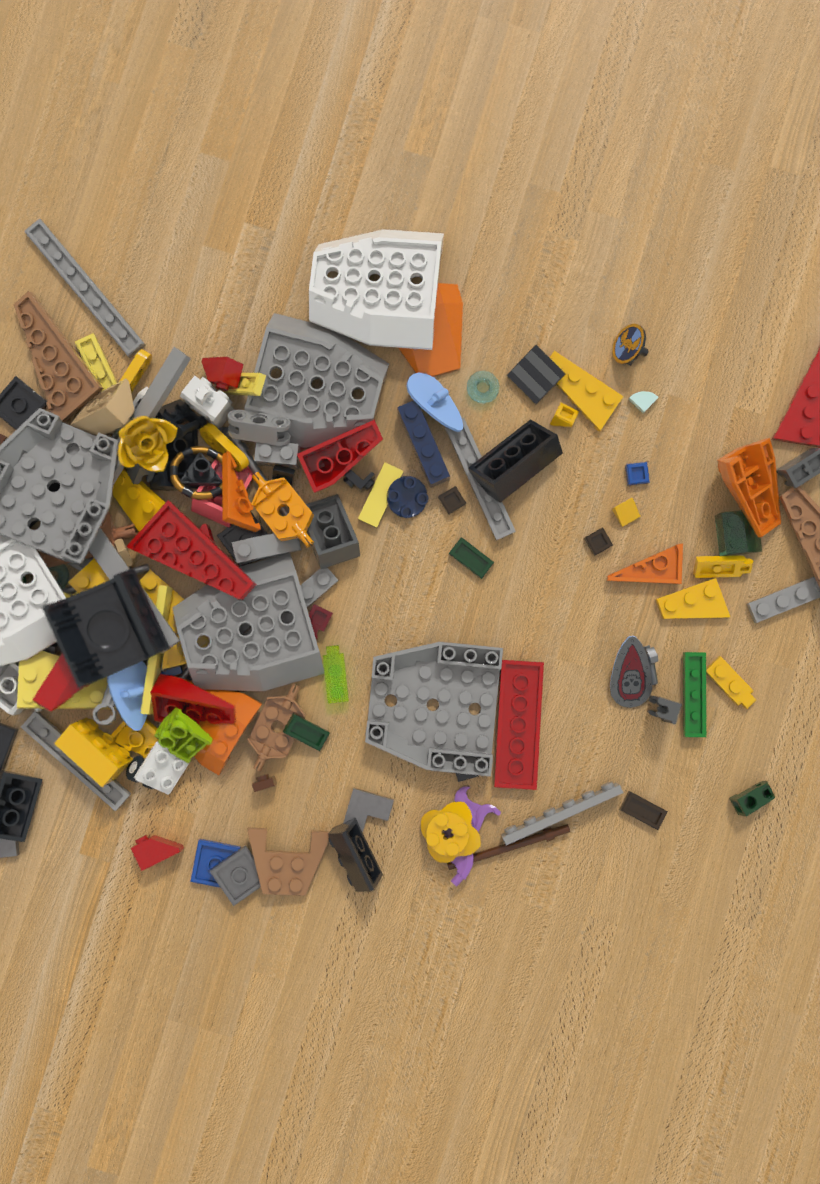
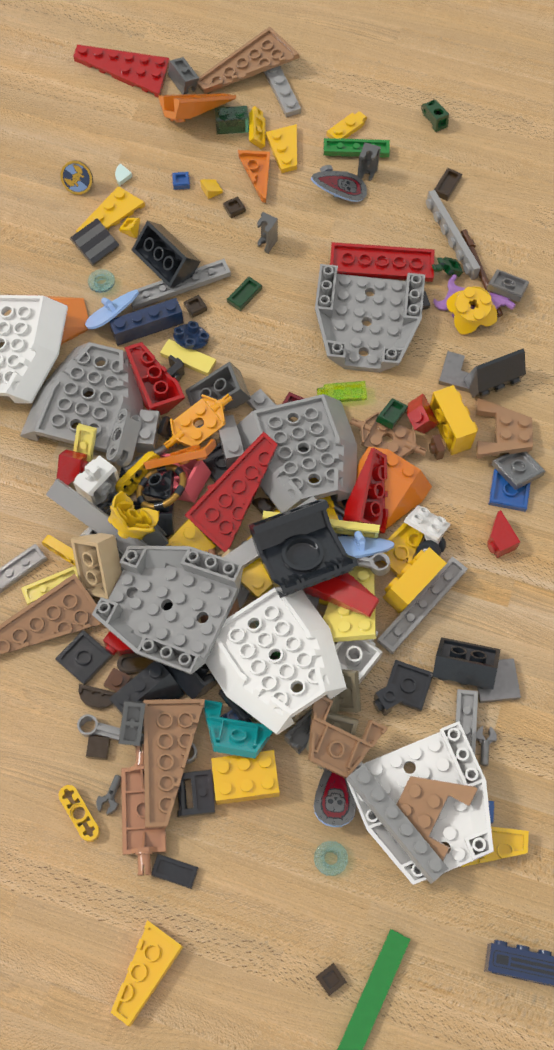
camera: 90 degrees left, 20 degrees down
(182, 735) = (396, 500): lime slope -> none
(192, 586) = (263, 504): none -> dark brown tile
(292, 803) = (453, 420): none -> yellow brick
(305, 765) = (421, 415): none -> red slope
(485, 878) = (507, 285): none -> flat silver tile
(513, 807) = (449, 265): none -> dark green plate
(552, 583) = (269, 231): none -> dark grey hinge

